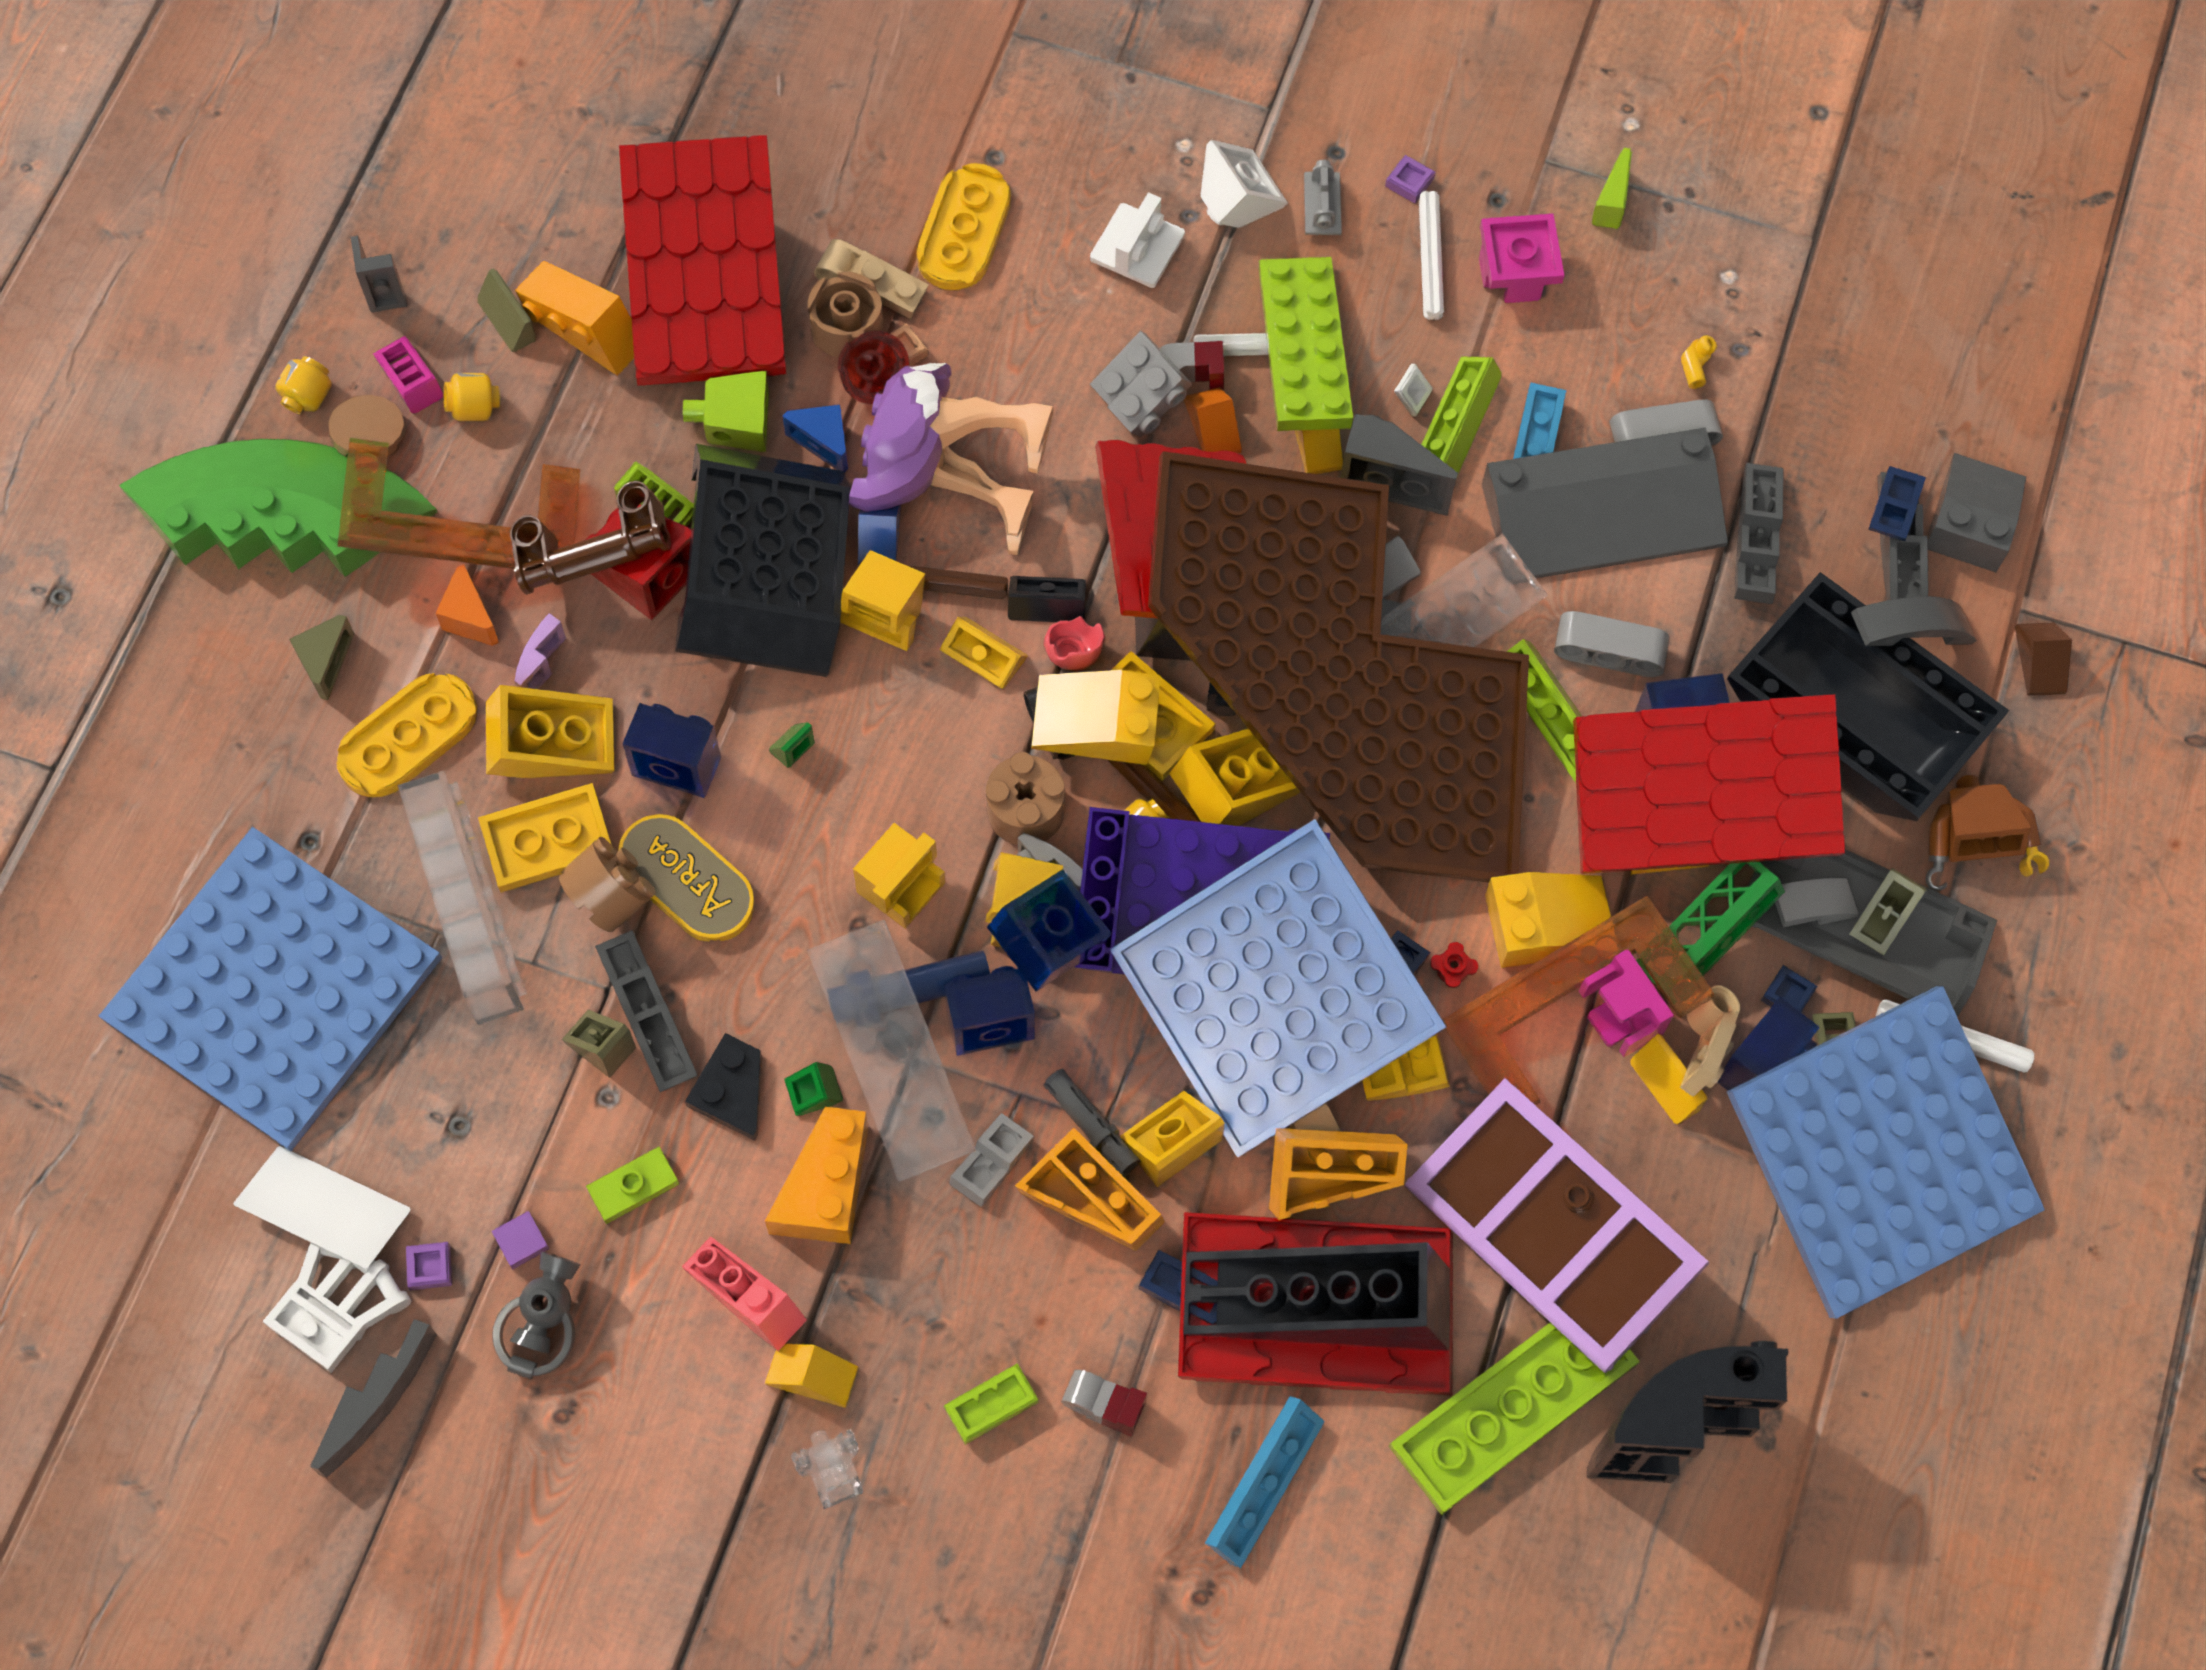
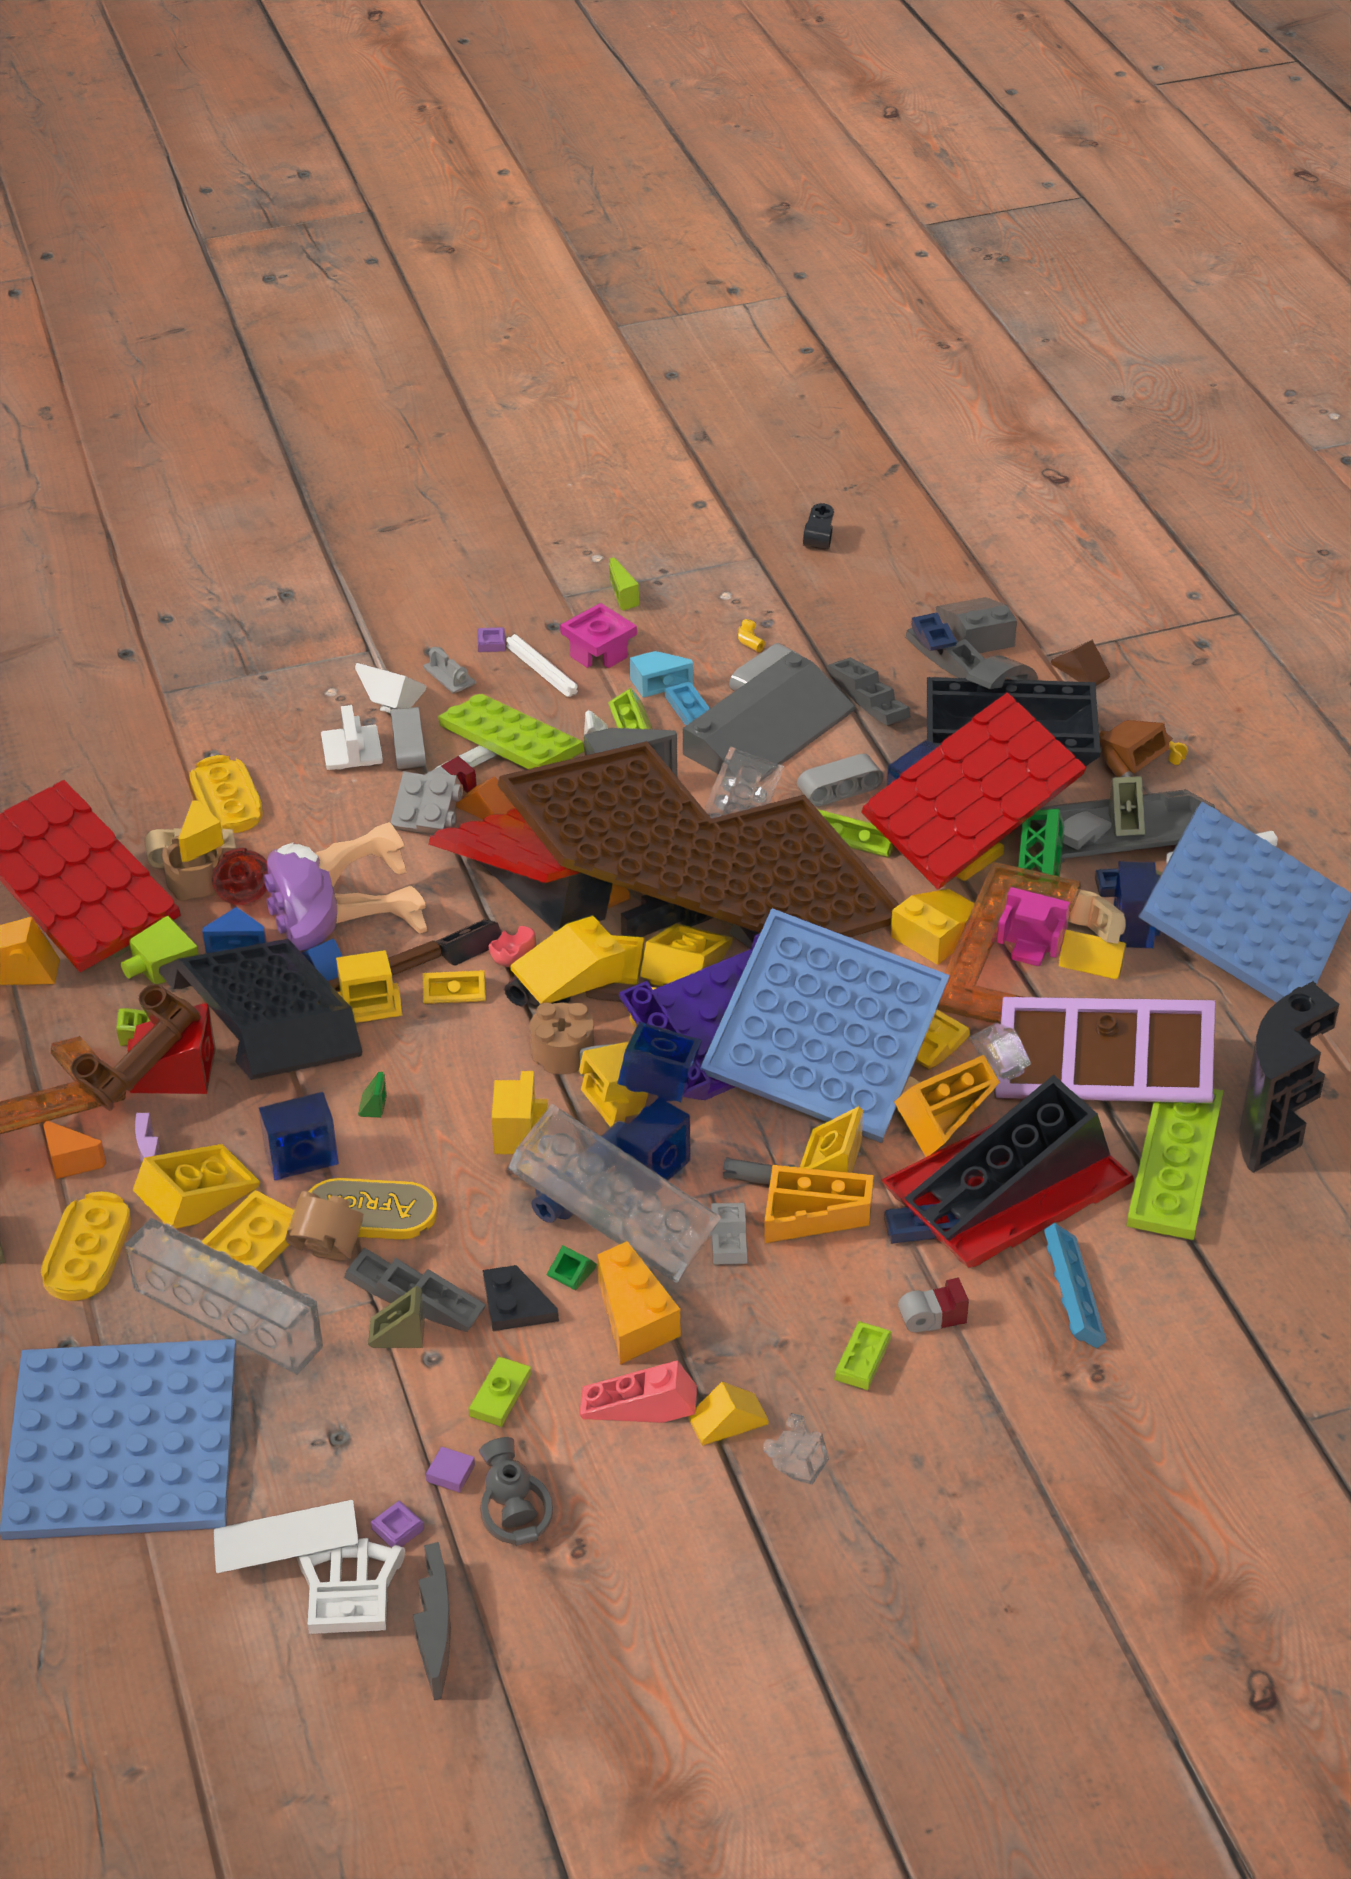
camera: 35 degrees left, 25 degrees down
(858, 288) = (199, 833): none -> yellow slope
(1202, 272) = (408, 738): none -> light grey beam
(1439, 1144) = (1002, 1050): none -> clear slope
(1545, 354) = (657, 671): none -> medium azure slope
(1917, 245) = (819, 528): none -> black piece

